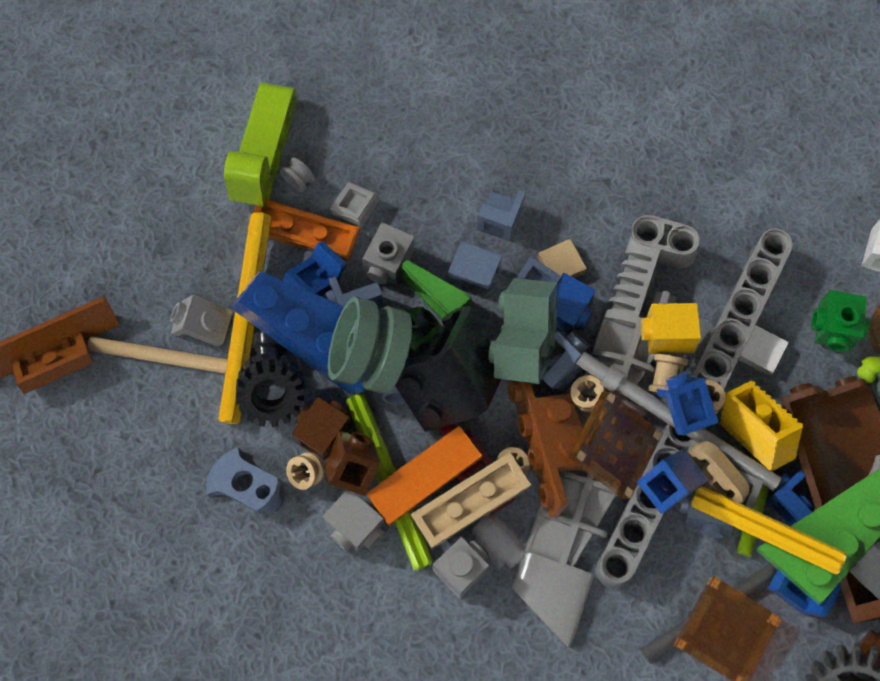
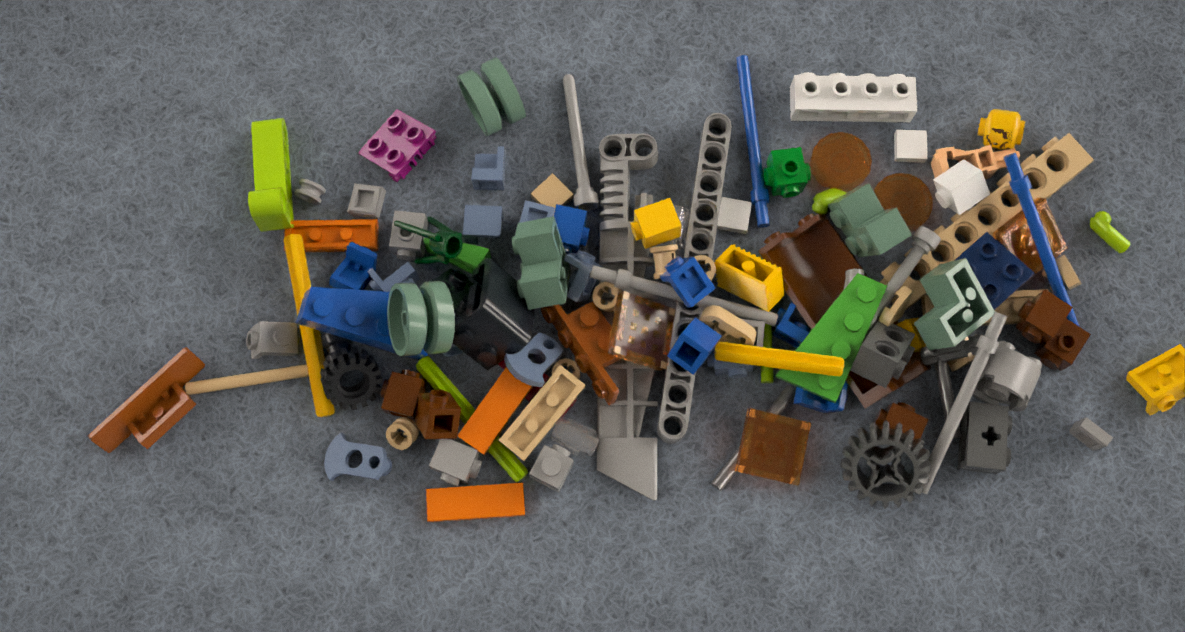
camera: 20 degrees left, 5 degrees up
(361, 577) = (475, 502): none -> orange tile
(409, 154) = (398, 143): none -> magenta hinge
(422, 273) = (444, 243): none -> dark green plant
(497, 434) = (545, 352): none -> sand blue piece
(530, 133) = (491, 96): none -> sand green wheel
(599, 275) = (585, 195): none -> light grey piece
(800, 336) = (759, 194): none -> blue bar

